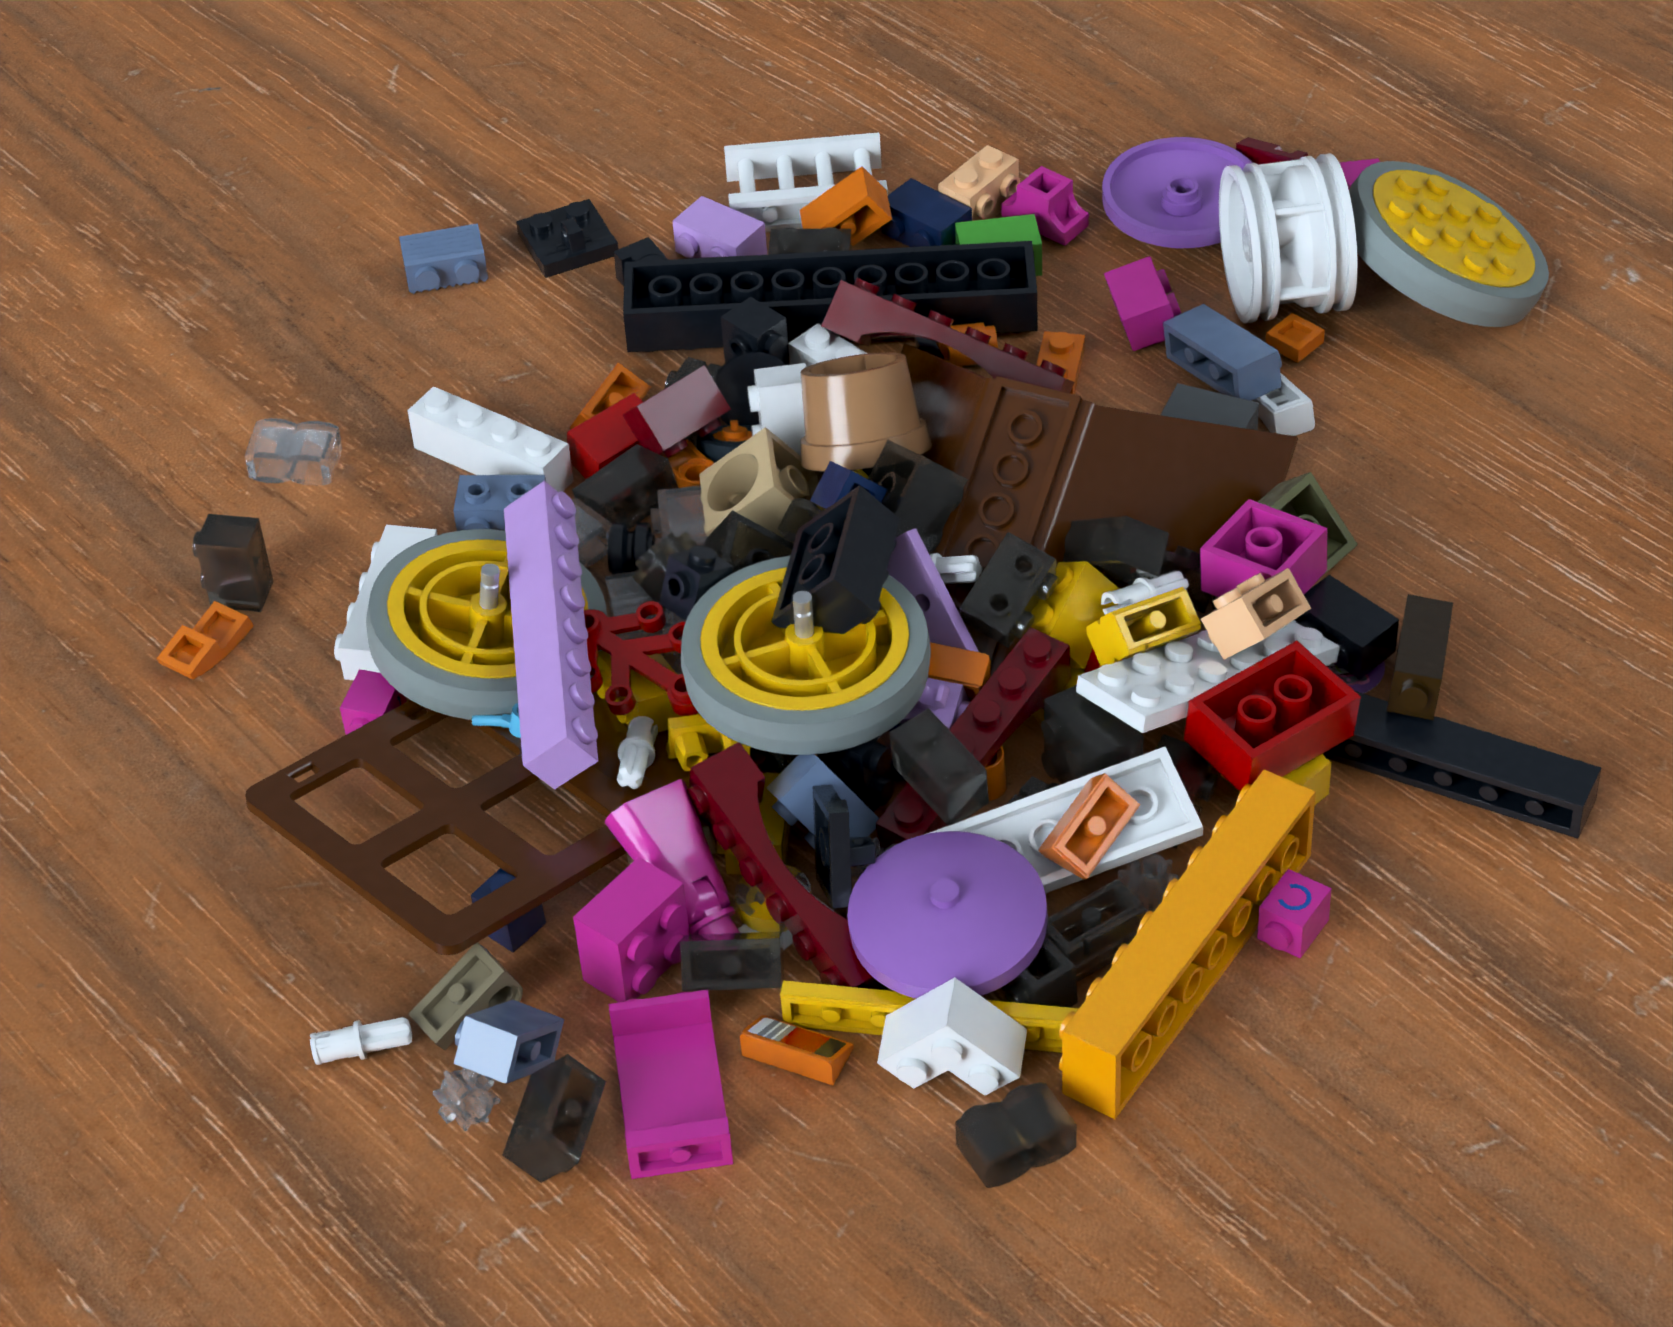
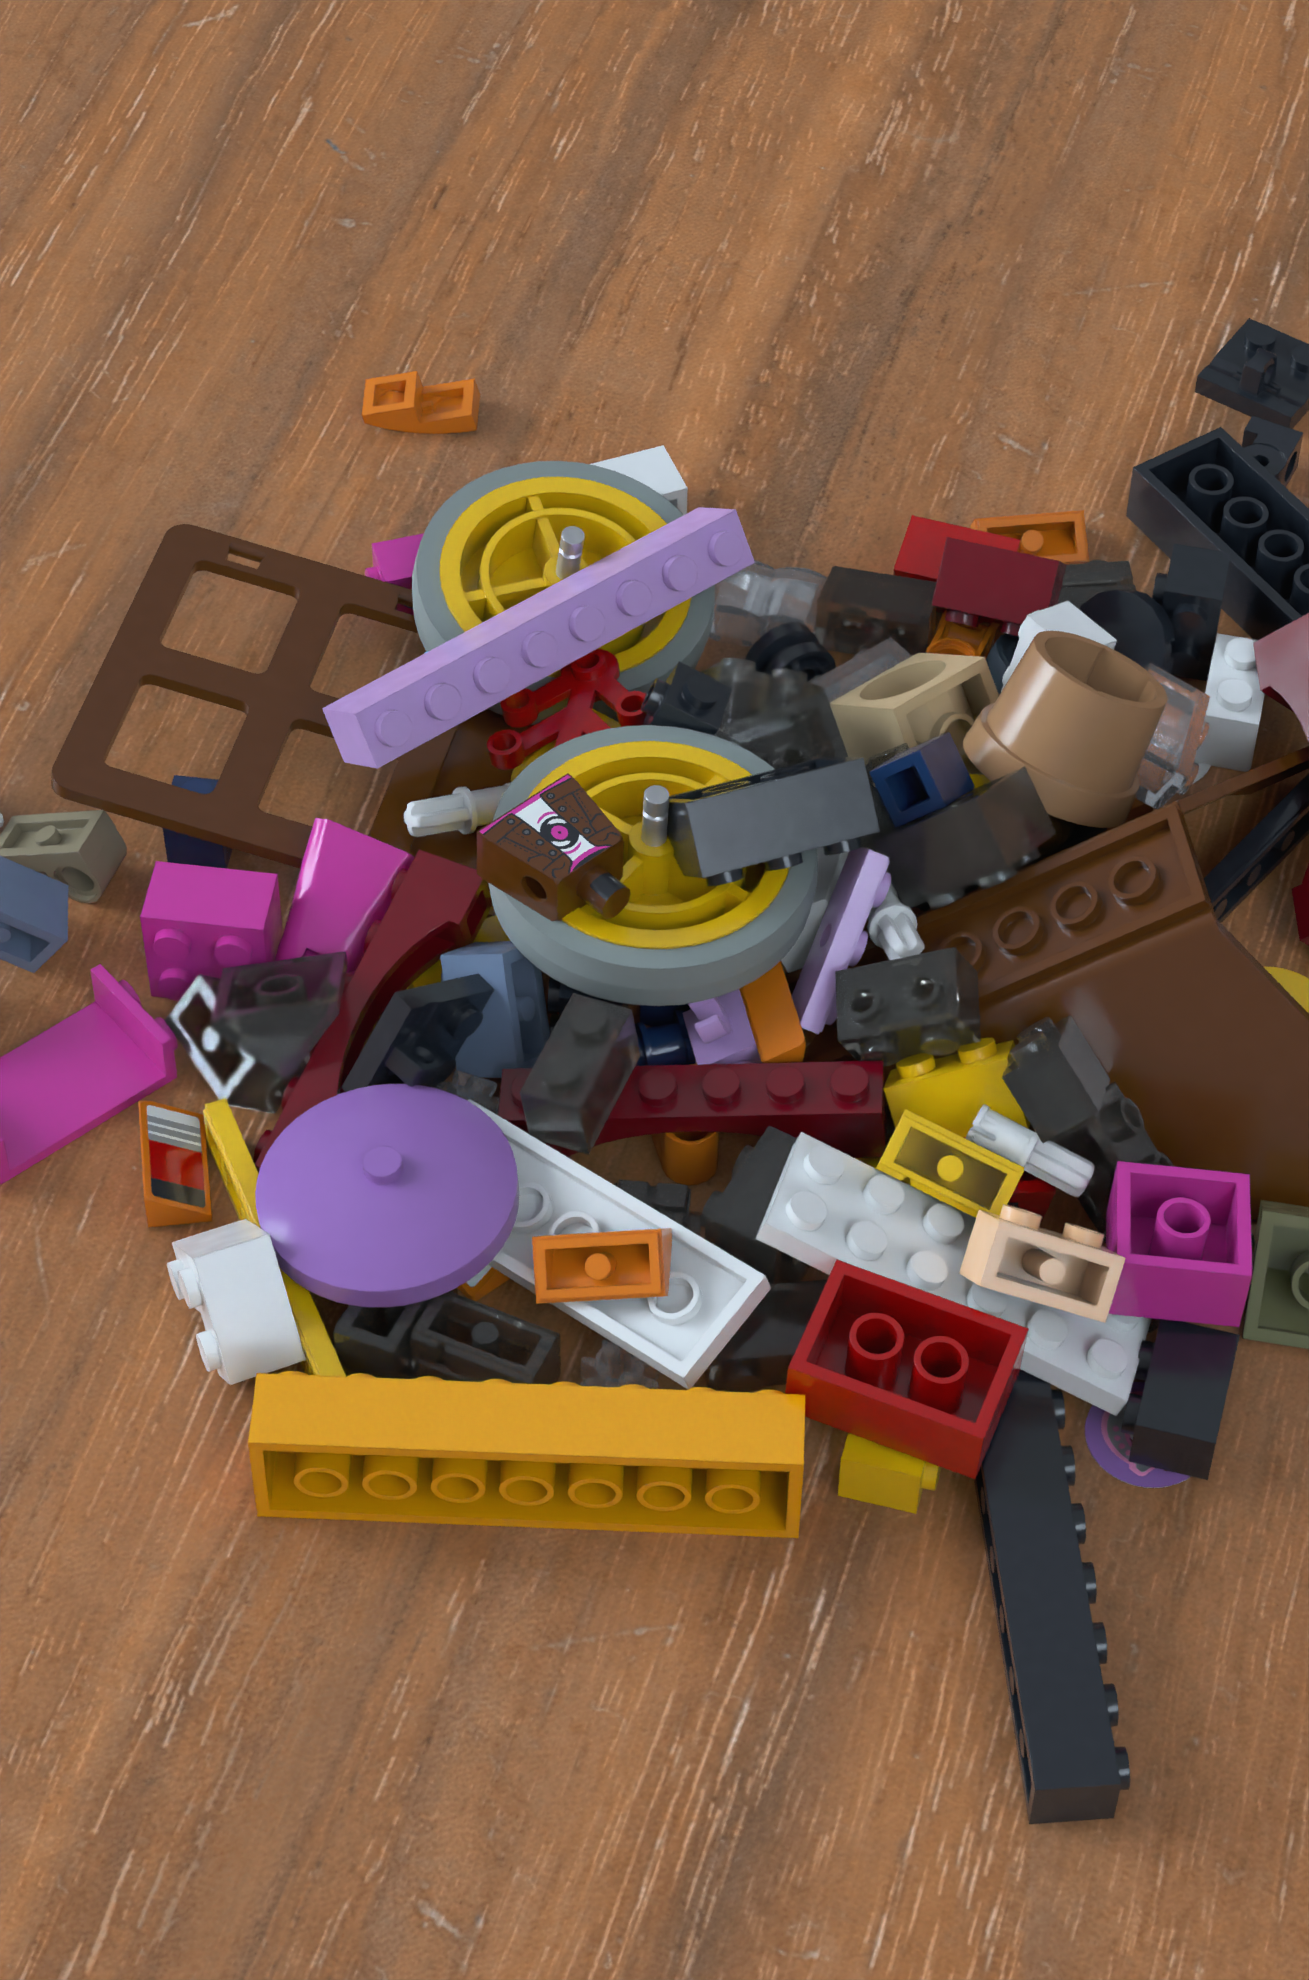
camera: 55 degrees right, 5 degrees up
(233, 562) = (518, 359): clear smoke brick -> none
(293, 452) = (737, 326): clear brick -> none
(443, 258) = (1132, 289): sand blue brick -> none
(482, 499) = (784, 522): sand blue brick -> none
(486, 440) = (866, 472): white brick -> none
(748, 901) = (280, 1007): none -> clear smoke slope
(795, 675) = (556, 853): none -> reddish brown torso
(1015, 1134) = (154, 1421): clear smoke brick -> none
(1294, 913) = (662, 1552): dark pink brick -> none
(1420, 657) = (1172, 1496): dark brown brick -> none

